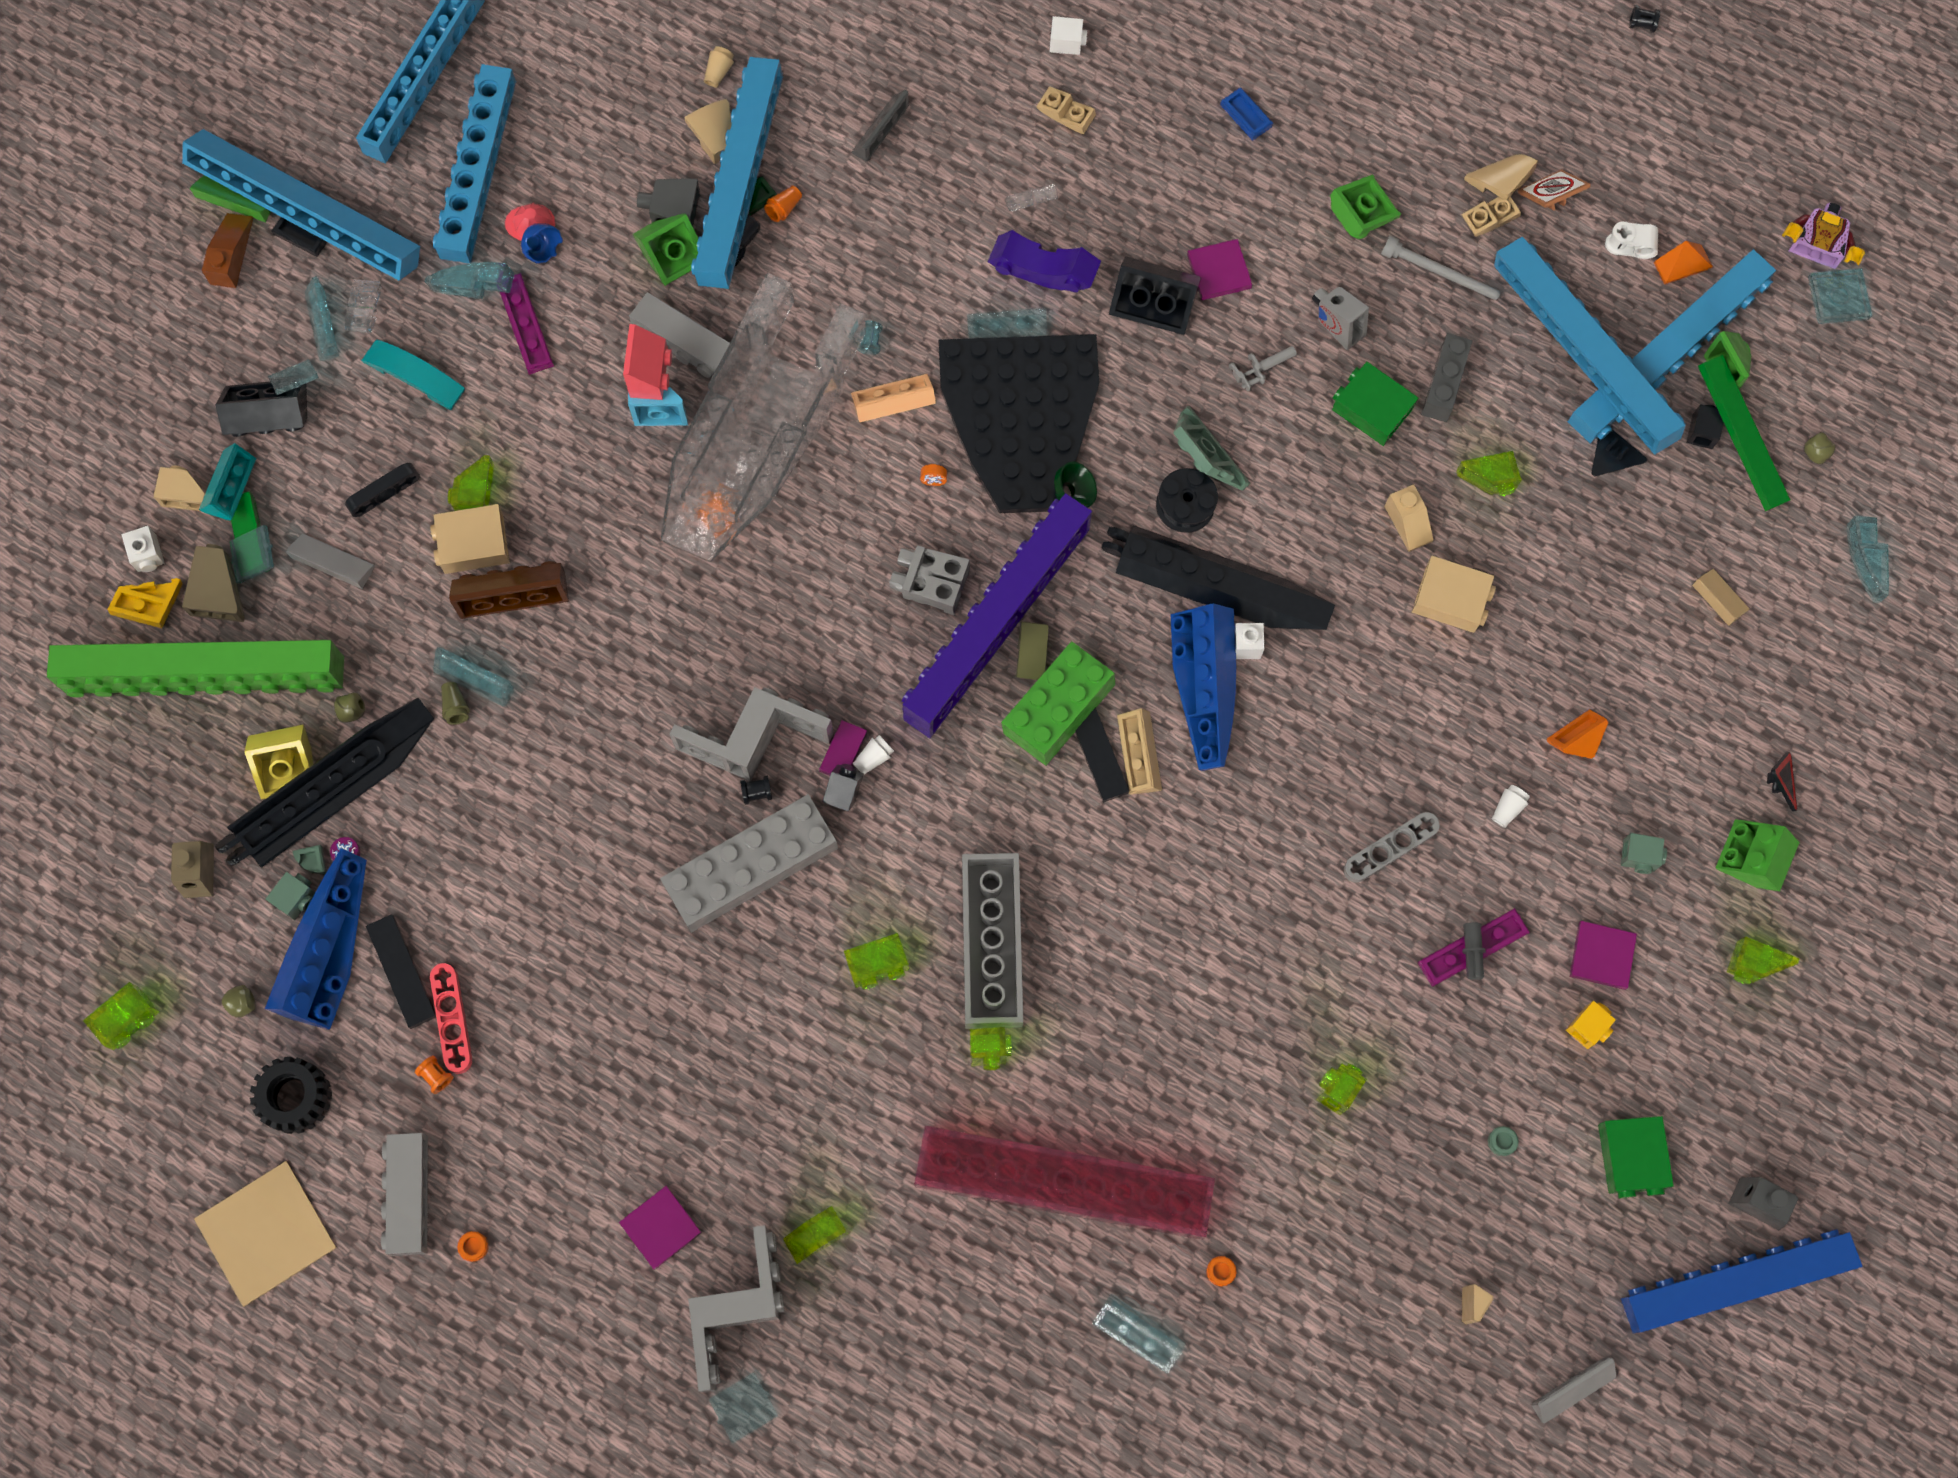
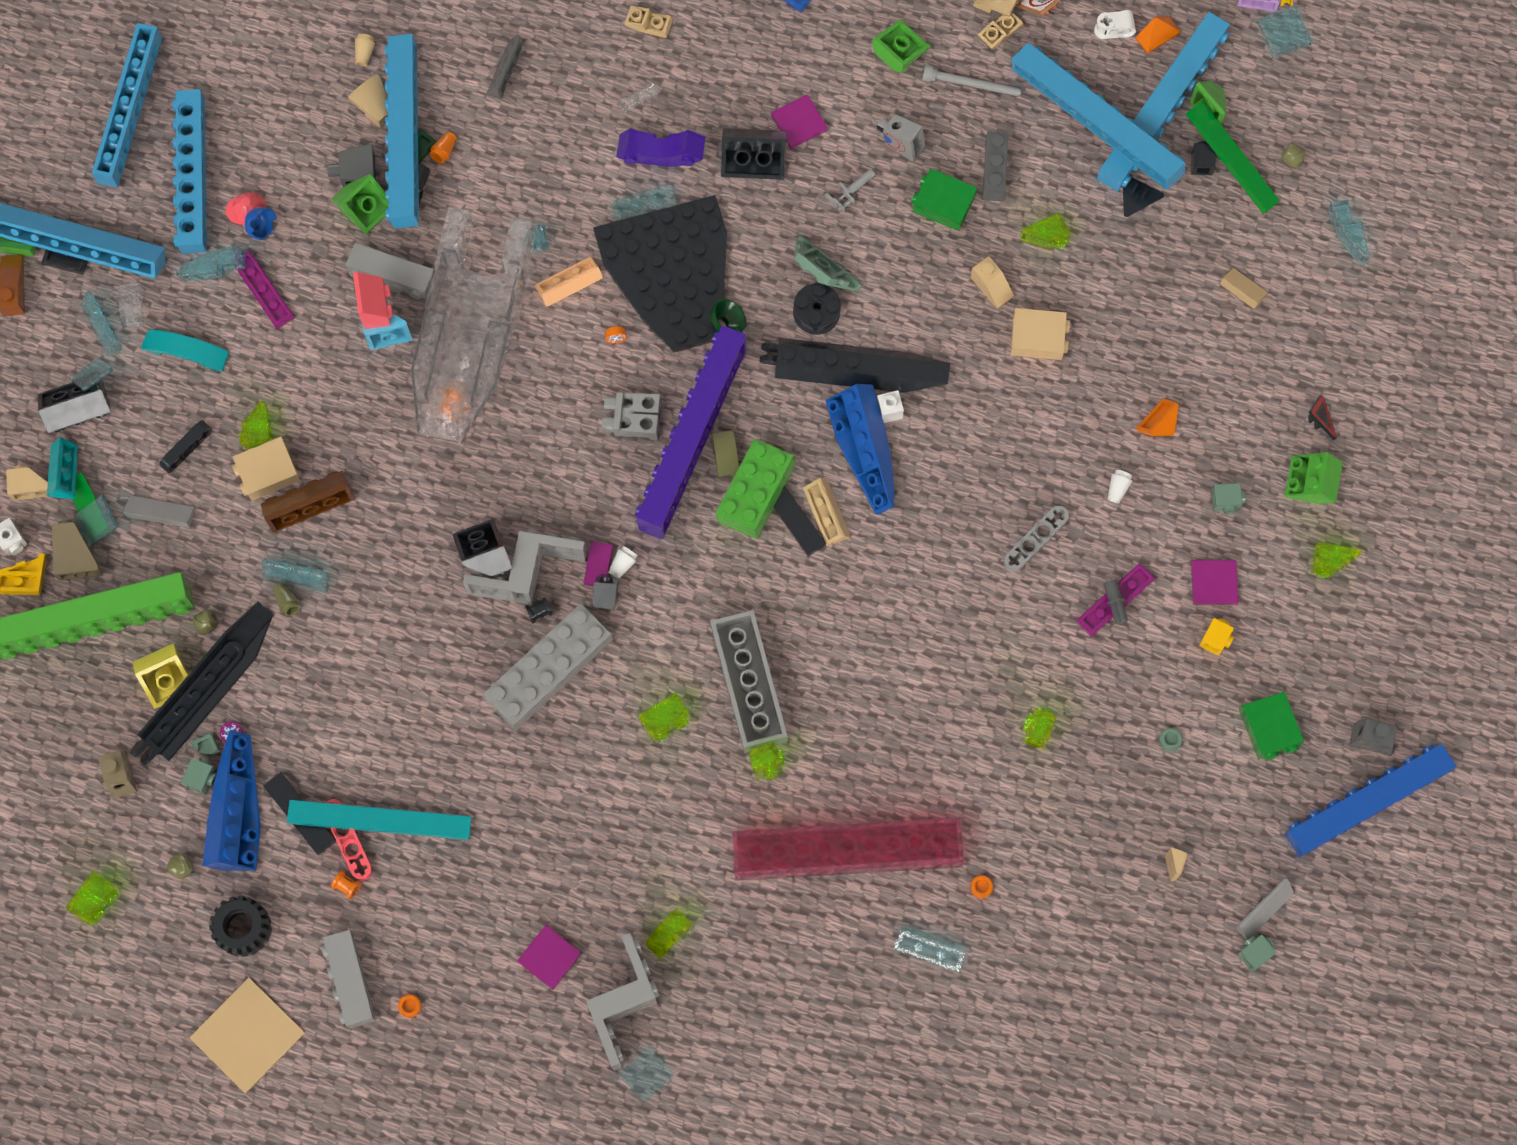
camera: 10 degrees left, 0 degrees up
(494, 1003) = (379, 820): none -> teal tile
(705, 699) = (482, 549): none -> black slope
(1553, 1443) = (1257, 951): none -> sand green brick

